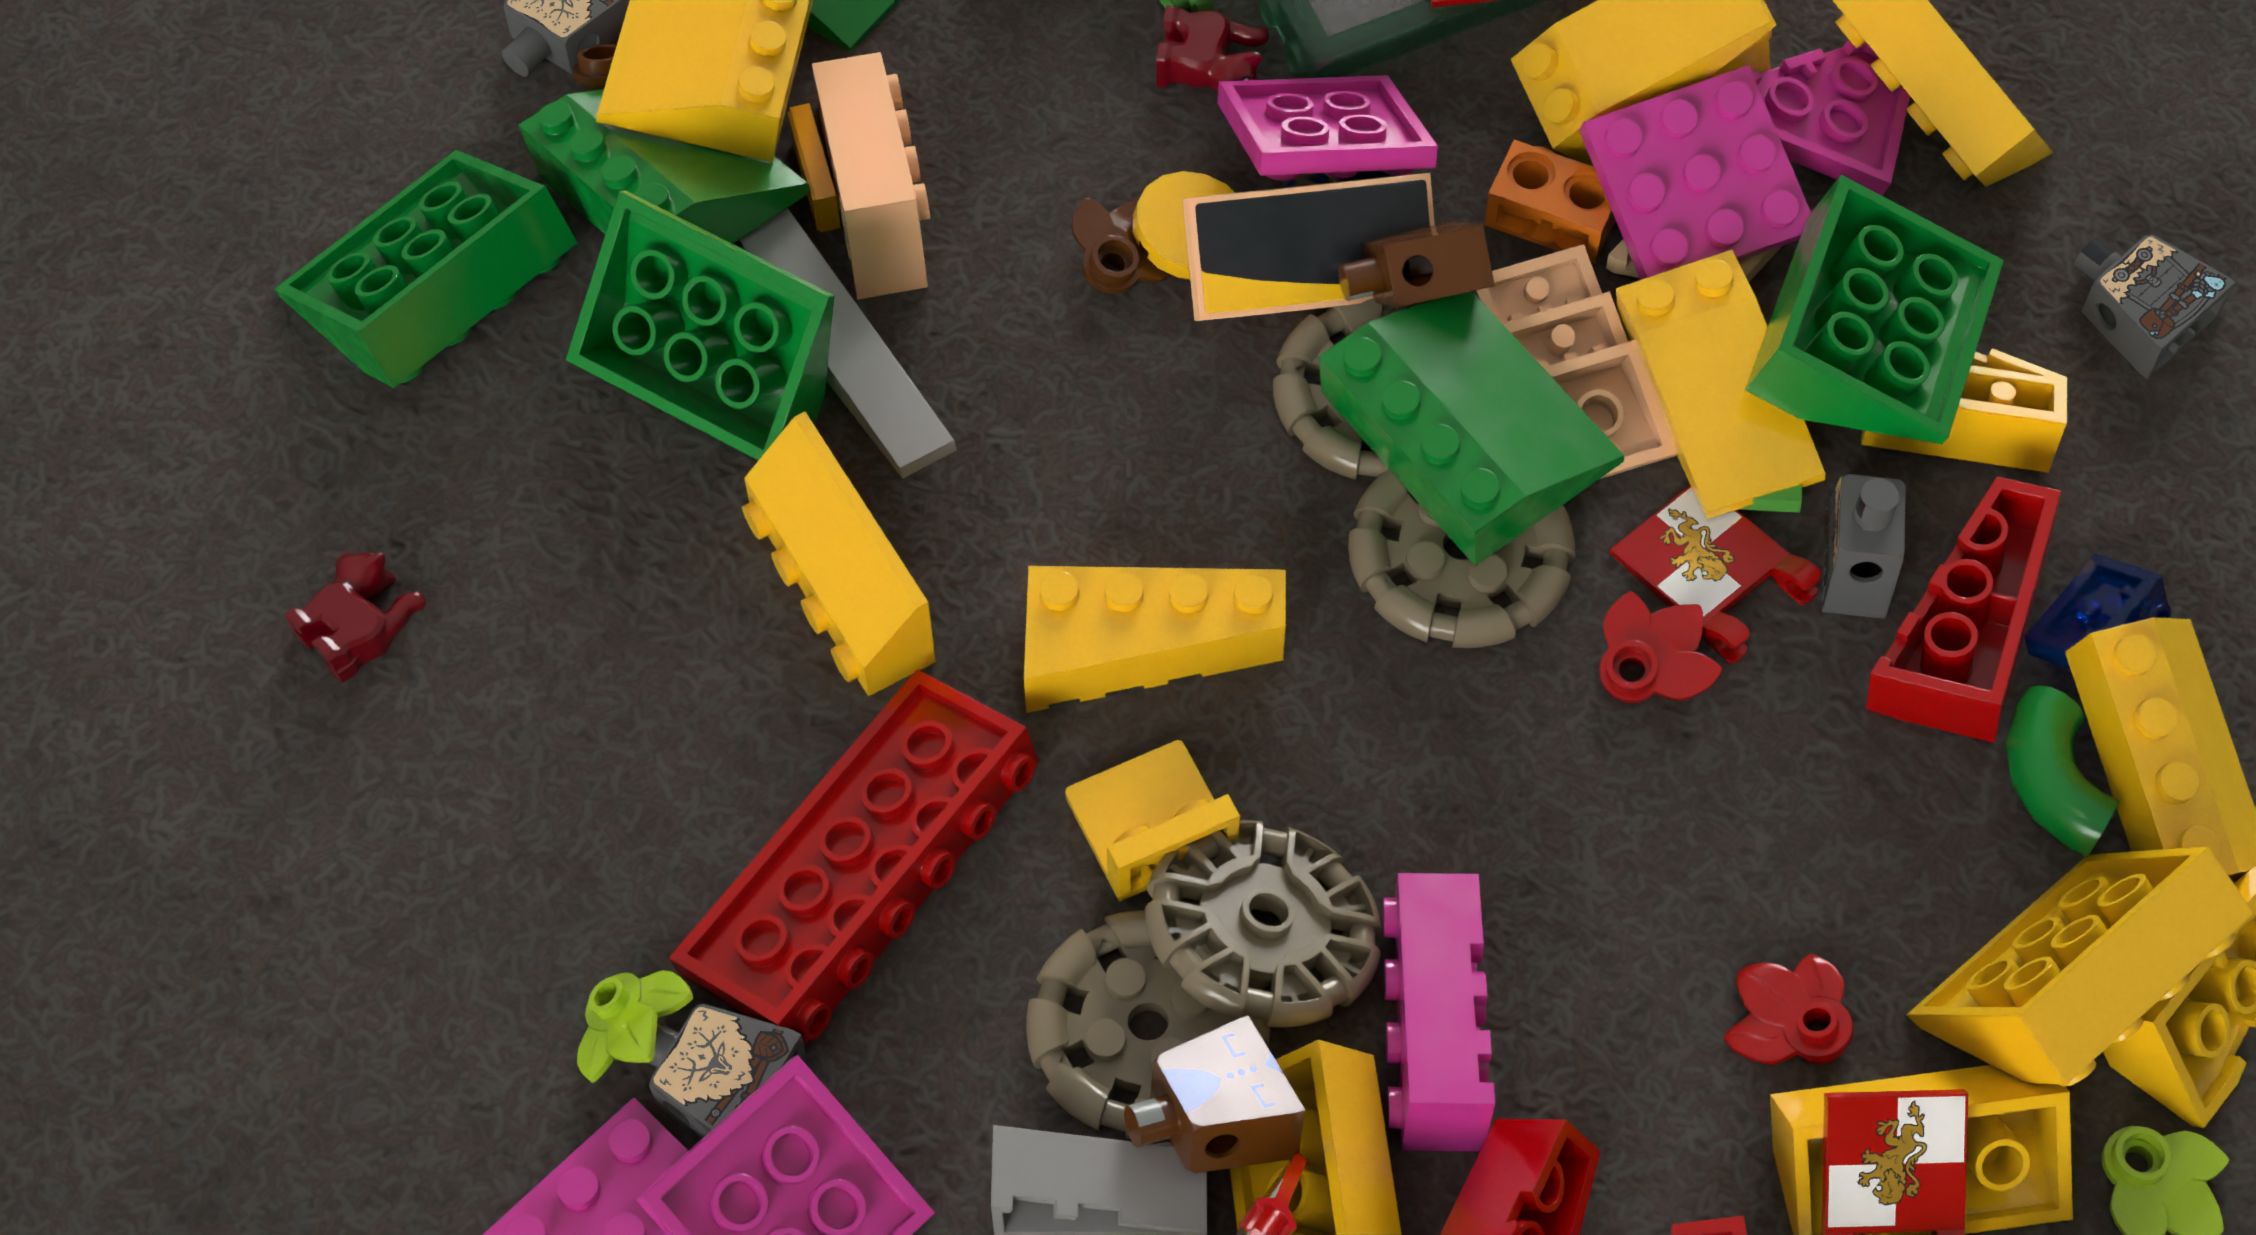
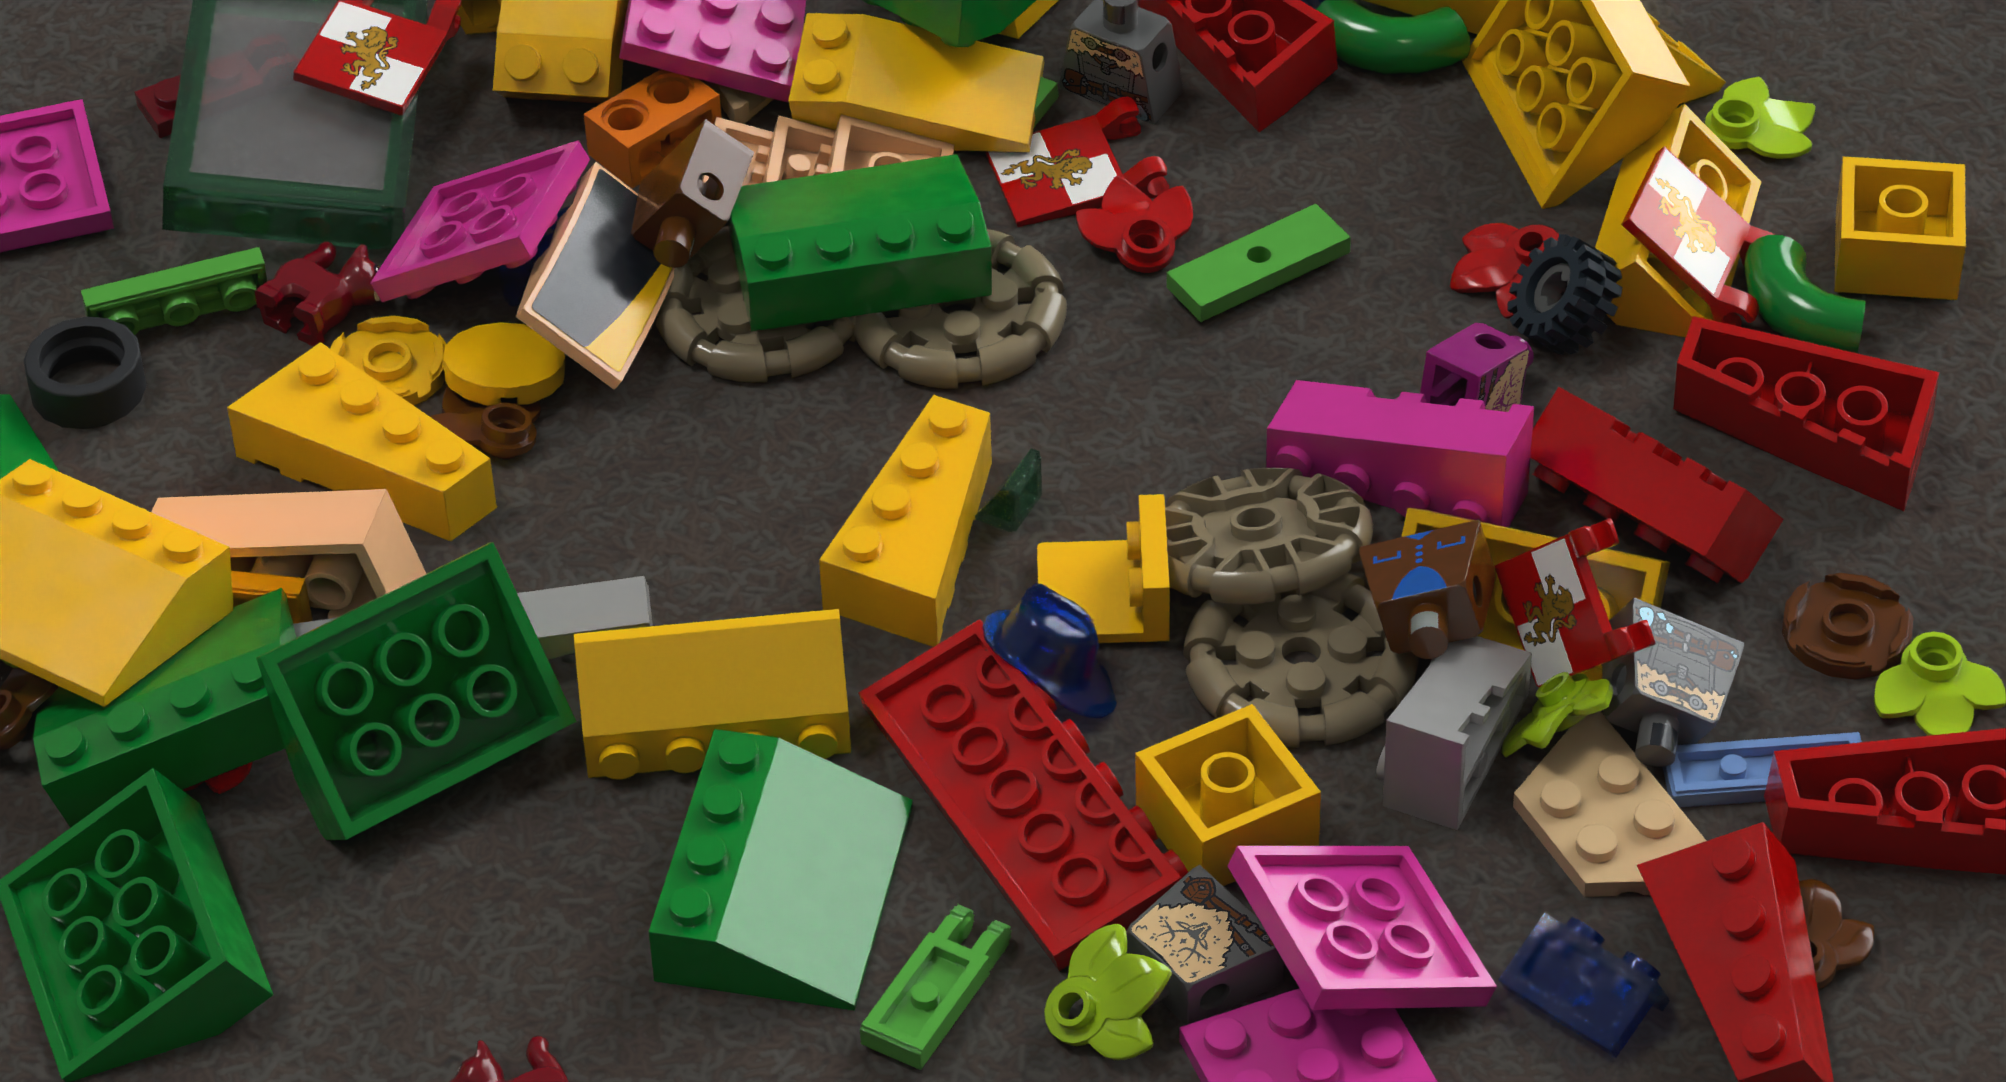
camera: 65 degrees left, 15 degrees down
(604, 876) = (933, 989): none -> bright green hinge
(677, 698) = (777, 875): none -> slope
(904, 1027) = (1226, 790): none -> yellow brick
(1023, 810) = (1055, 648): none -> clear blue piece
(1035, 160) = (353, 433): none -> yellow wedge
(1142, 157) = (388, 340): none -> yellow tile
(1233, 697) = (1015, 495): none -> clear green slope
(1566, 1042) = (1477, 366): none -> magenta torso
(1627, 758) = (1258, 262): none -> bright green tile
(1741, 1080) = (1565, 294): none -> black bush

